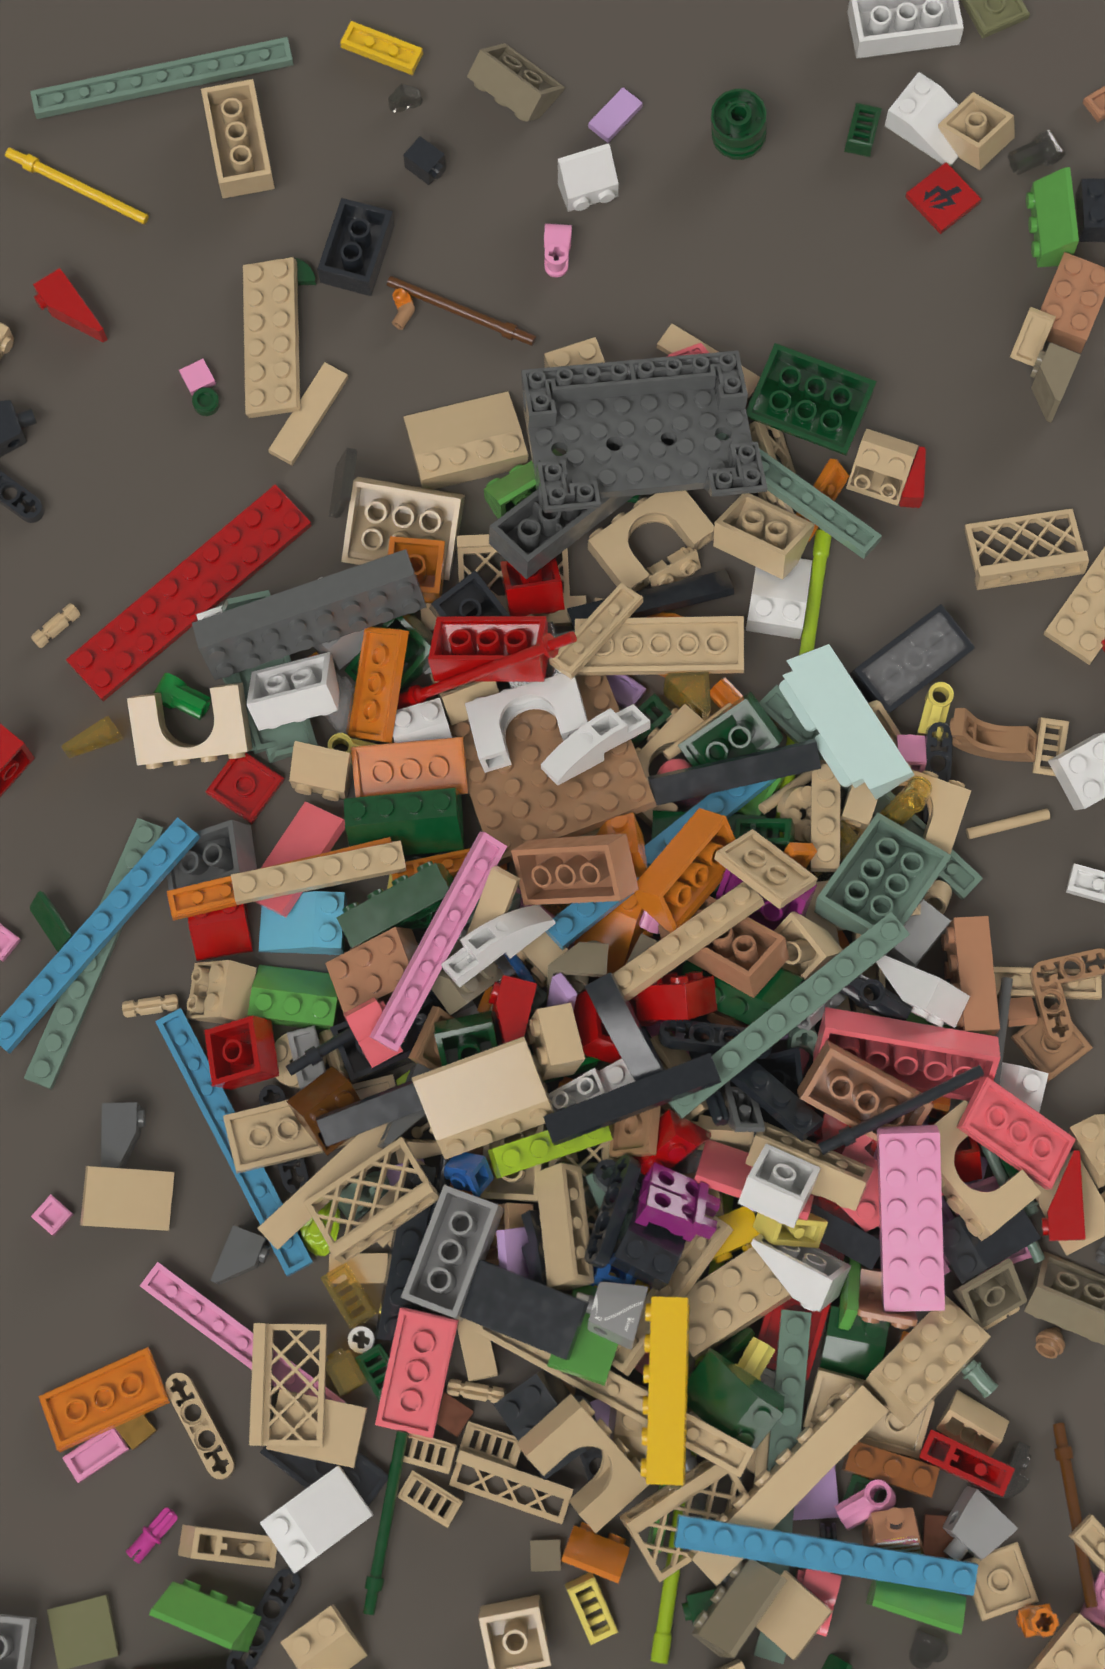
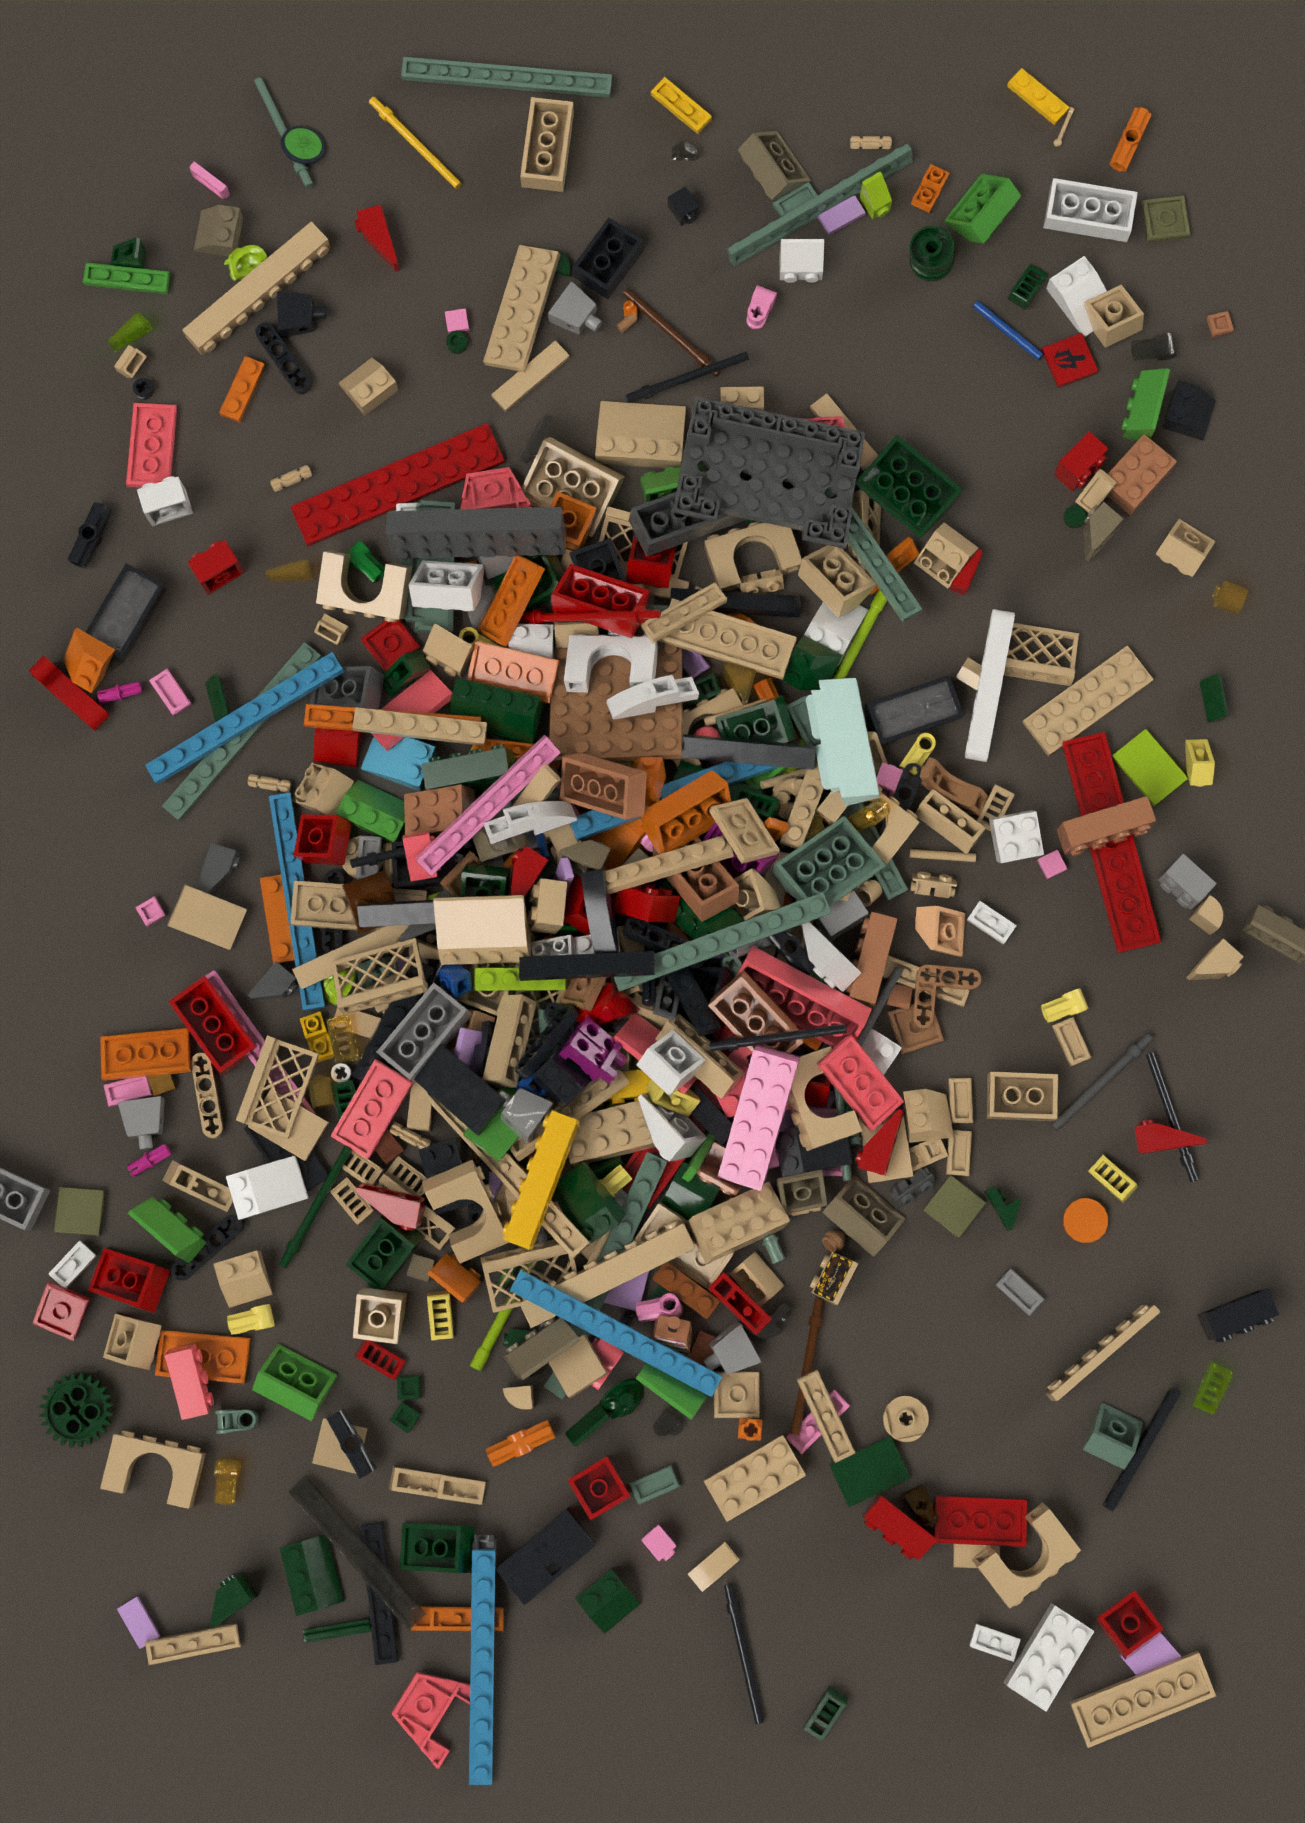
camera: 20 degrees right, 5 degrees up
(116, 485) = (369, 386): none -> tan slope
(128, 1484) = (143, 1119): none -> light grey torso
(166, 791) = (331, 629): none -> tan piece
(179, 1333) = (213, 1025): none -> red slope
(216, 1172) = (277, 919): none -> orange plate
(275, 814) = (405, 672): none -> dark green slope
(309, 560) = (493, 490): none -> coral wing
(315, 1302) = (317, 1036): none -> yellow slope
(336, 321) = (574, 311): none -> light grey torso
(456, 387) = (647, 391): none -> black bar
(492, 1486) = (396, 1206): none -> slope
(493, 1548) = (384, 1252): none -> dark green slope
(555, 116) = (794, 199): none -> sand green tile
(577, 118) = (812, 208): none -> sand green plate
(619, 22) = (870, 142): none -> tan axle
(649, 79) = (875, 196): none -> lime slope
(708, 53) = (930, 188): none -> orange slope
(769, 644) = (809, 664): none -> dark green slope
(779, 55) = (983, 207): none -> bright green slope
(858, 186) = (1016, 337): none -> blue bar
(859, 1636) = (623, 1398): none -> dark green hat
(966, 595) = (970, 673): none -> tan piece
(992, 601) = (989, 685): none -> white beam
(1003, 307) = (1081, 461): none -> red brick
(1004, 779) = (950, 821): none -> tan brick
(1016, 374) = (1074, 516): none -> dark green tile
(1021, 859) = (942, 884): none -> tan hinge
(1040, 912) = (941, 929): none -> light nougat slope
(1069, 1390) = (833, 1278): none -> slope

